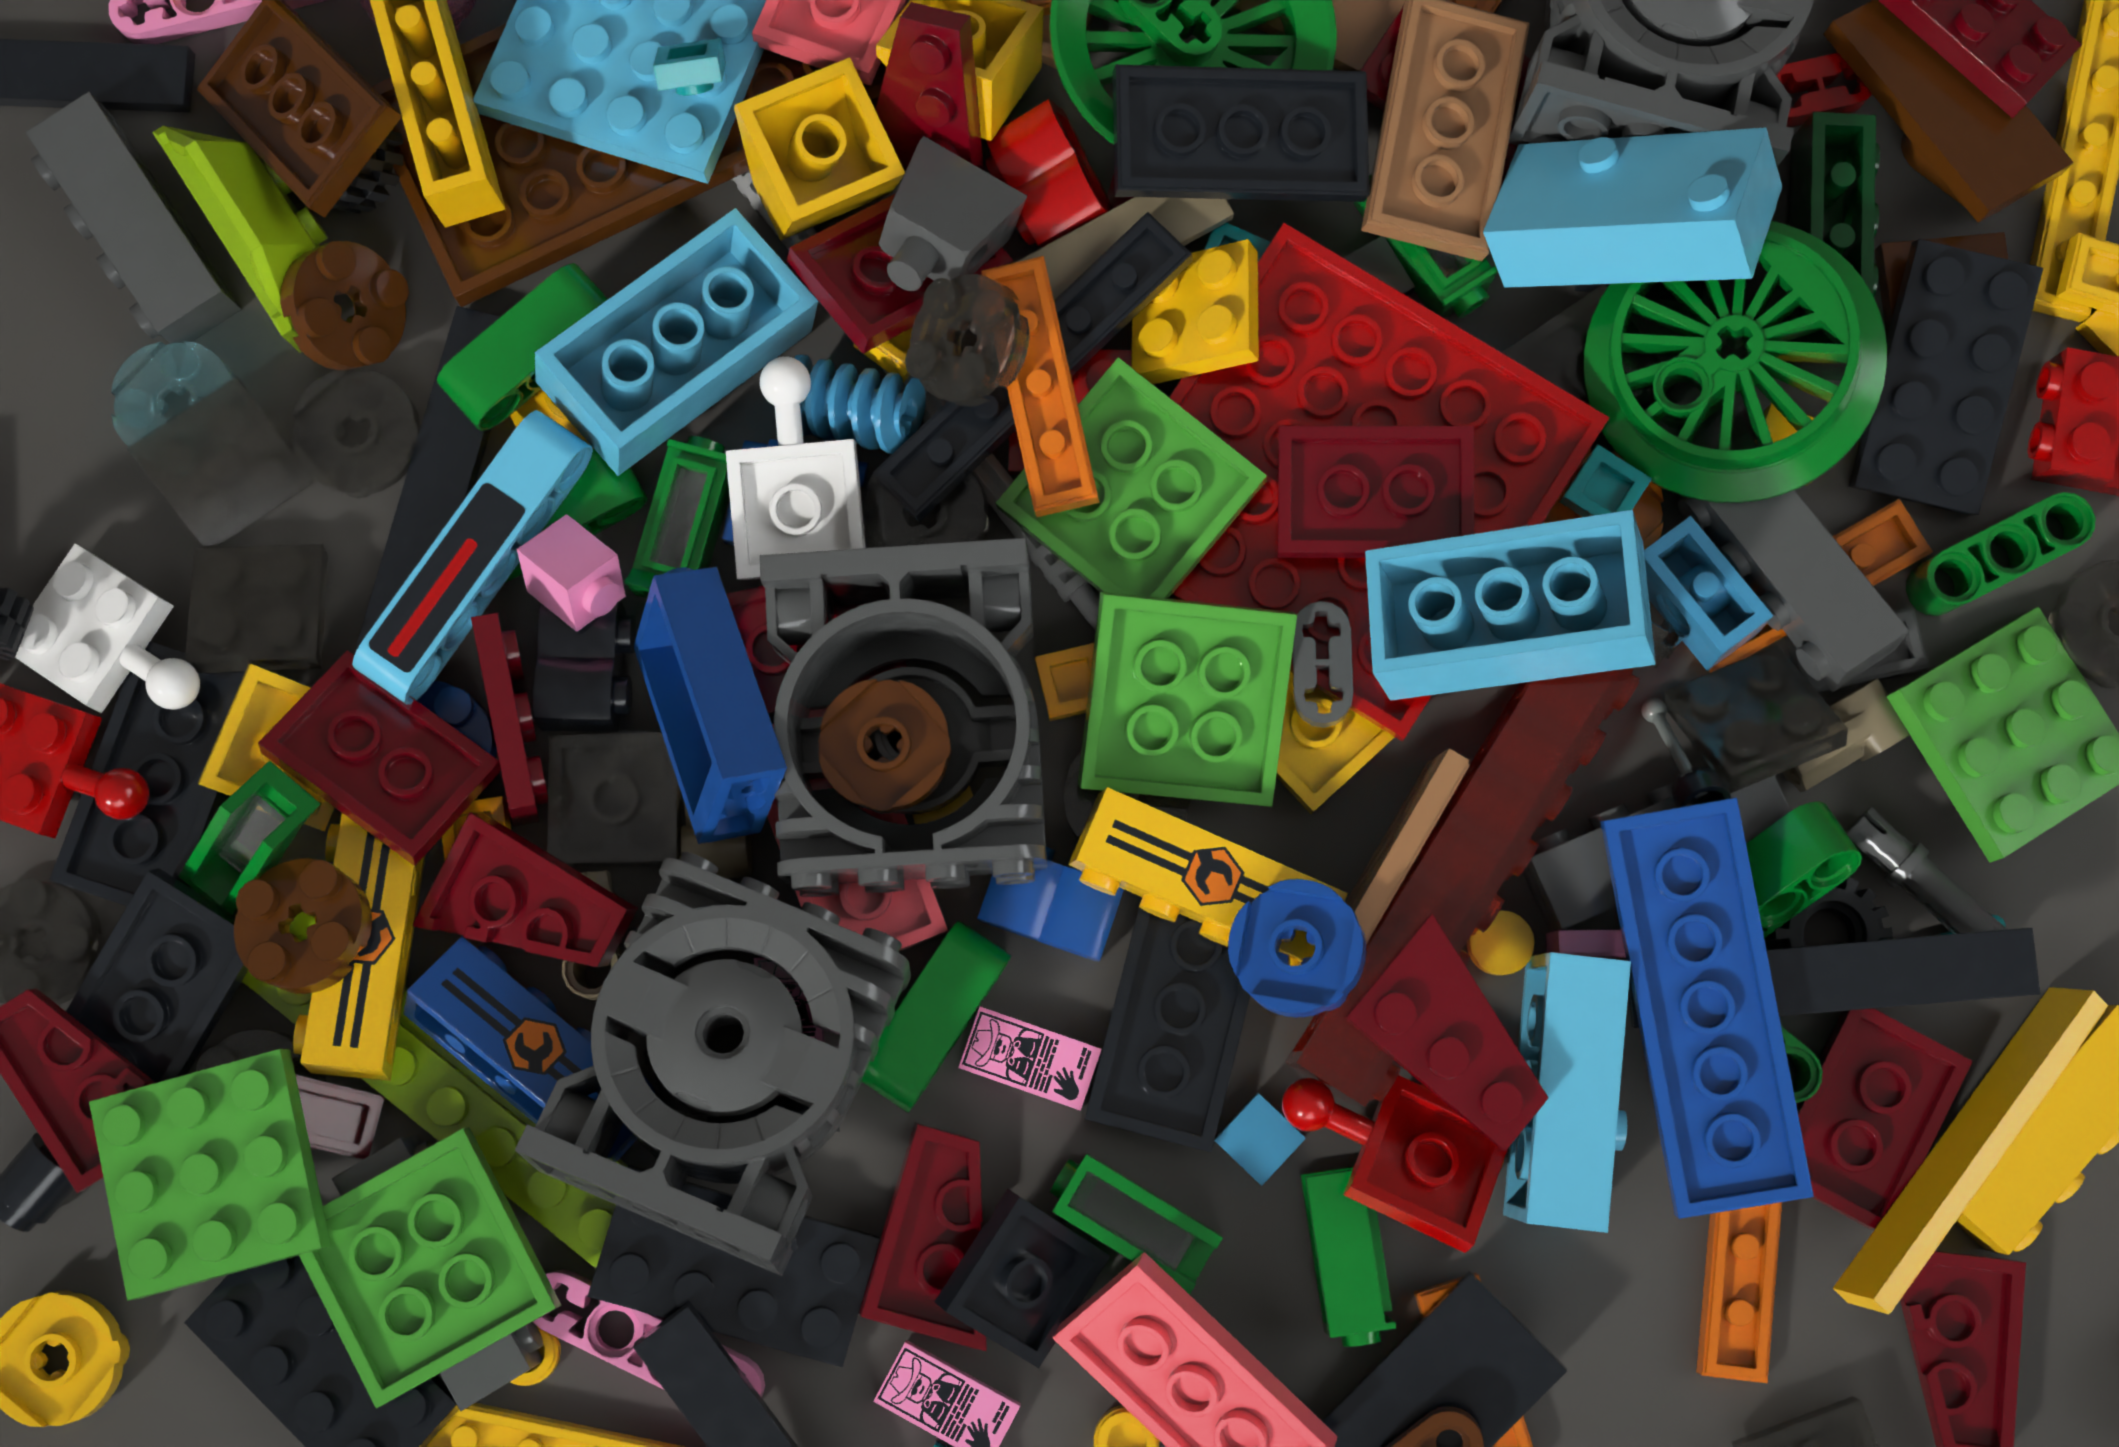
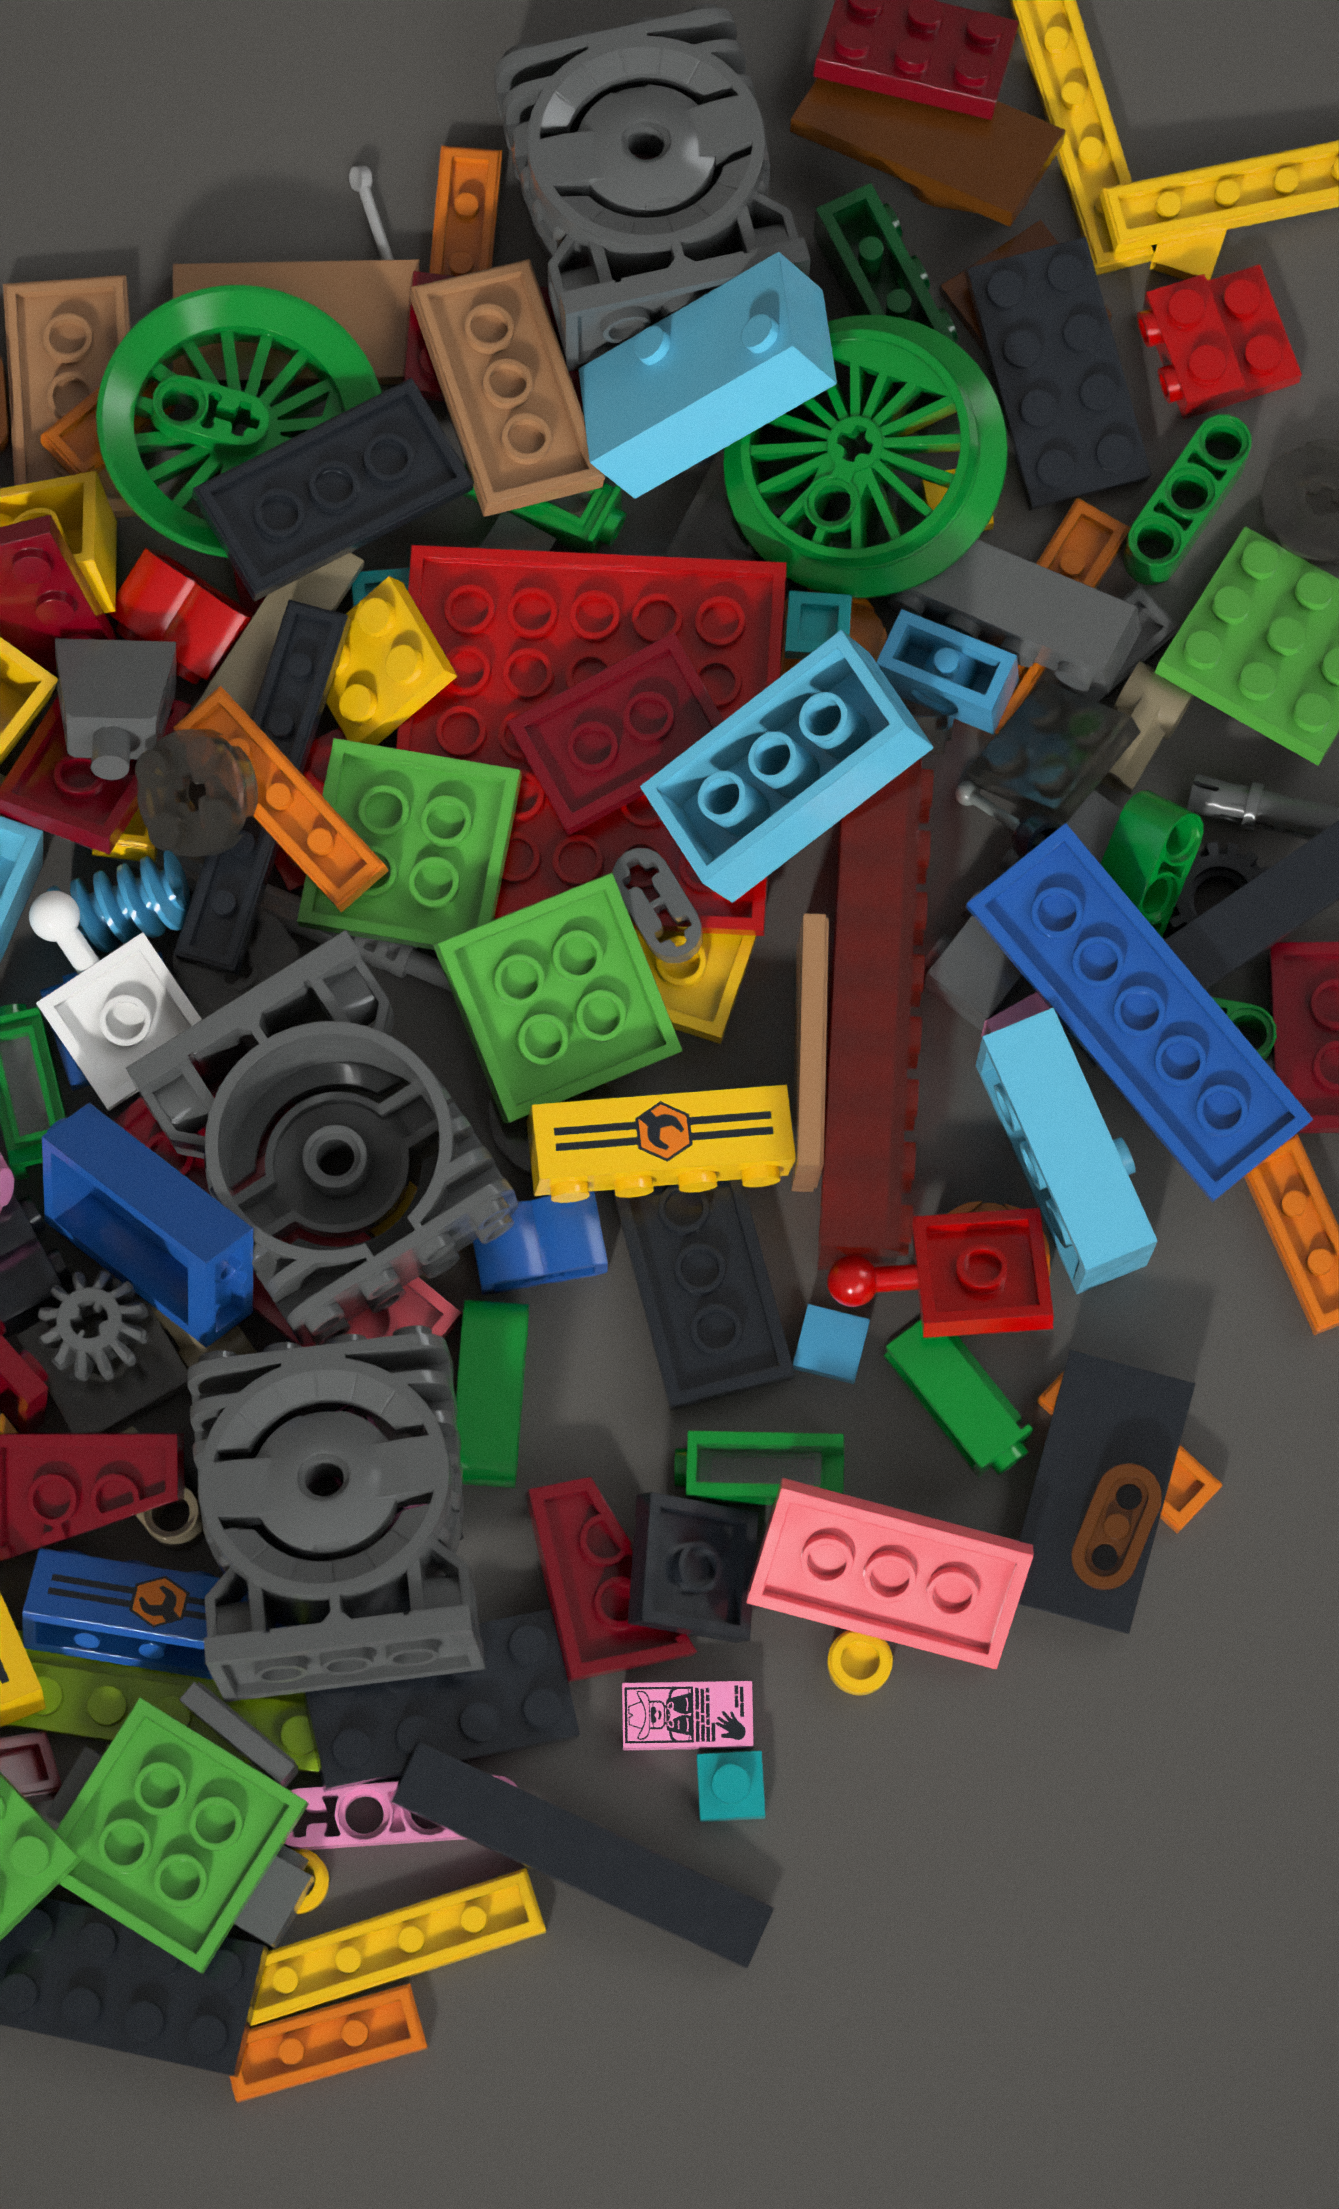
camera: 30 degrees left, 5 degrees down
(538, 1212) = (239, 1734): none -> dark grey tile
(604, 747) = (114, 1332): none -> dark grey gear
(887, 707) = (304, 1140): reddish brown plate -> none
(1030, 1058) = (594, 1385): bright pink tile -> none
(1065, 680) = (443, 1043): light orange plate -> none
(1274, 917) = (734, 1133): blue plate -> none
(1448, 1036) = (934, 1152): dark red wing -> none
(1503, 946) = (946, 1063): yellow tile -> none
(1813, 76) = (802, 170): red beam -> none

